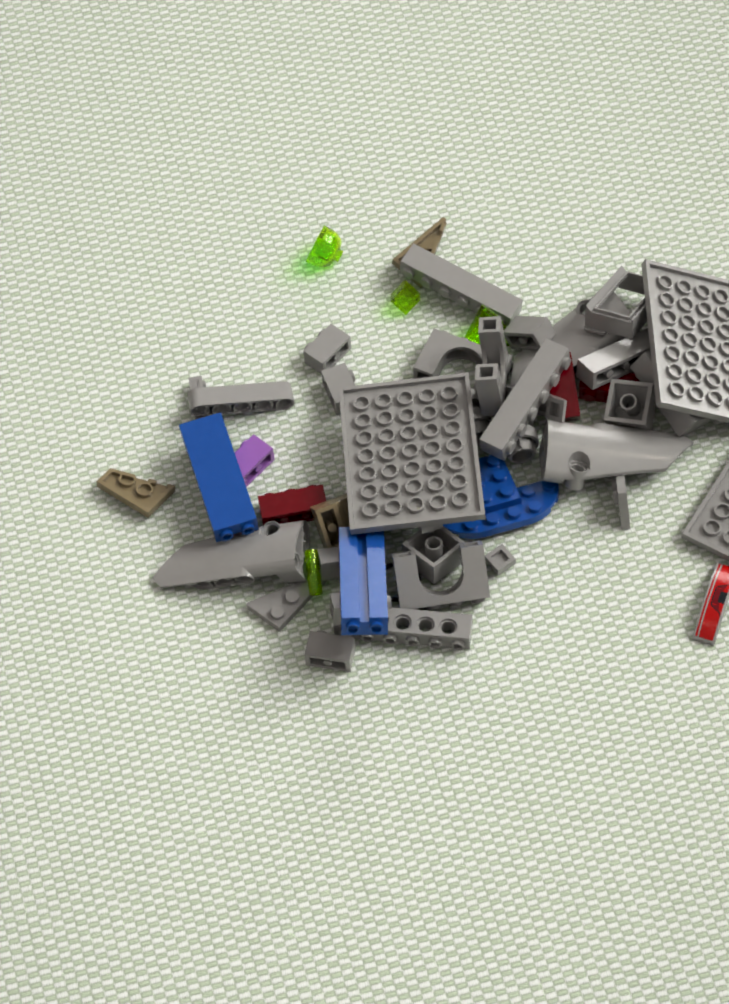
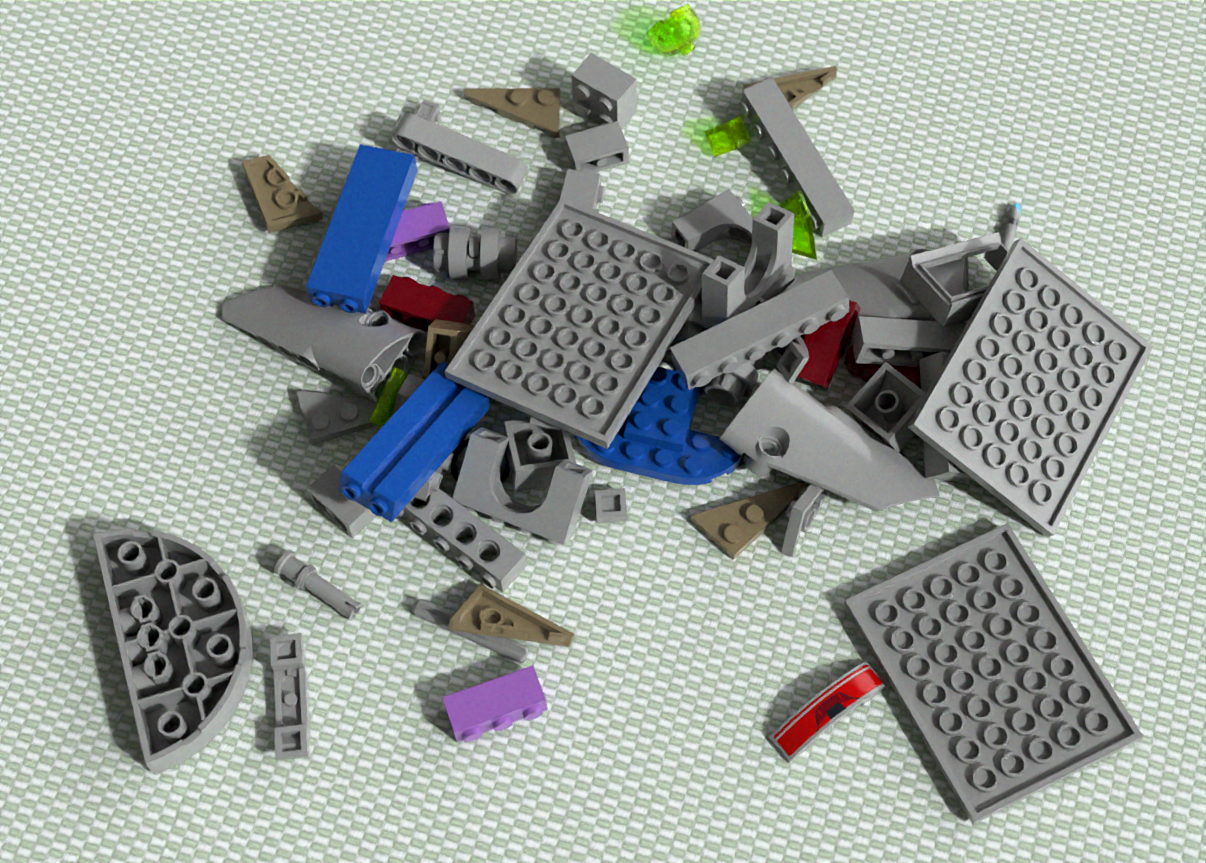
camera: 30 degrees right, 5 degrees up
(259, 346) = (527, 105): none -> dark tan wing
(288, 786) = (178, 640): none -> light grey brick
(291, 459) = (454, 252): none -> light grey piece
(308, 310) = (604, 92): none -> light grey brick
(341, 710) = (307, 578): none -> light grey pin
(386, 783) = (291, 697): none -> light grey slope
(468, 681) = (441, 617): none -> light grey axle
(480, 662) = (498, 616): none -> dark tan wing
(517, 713) = (495, 704): none -> medium lavender brick
(528, 332) = (835, 251): light grey brick -> none
(586, 524) = (743, 521): none -> dark tan wing
(618, 252) = (1010, 229): none -> light grey piece

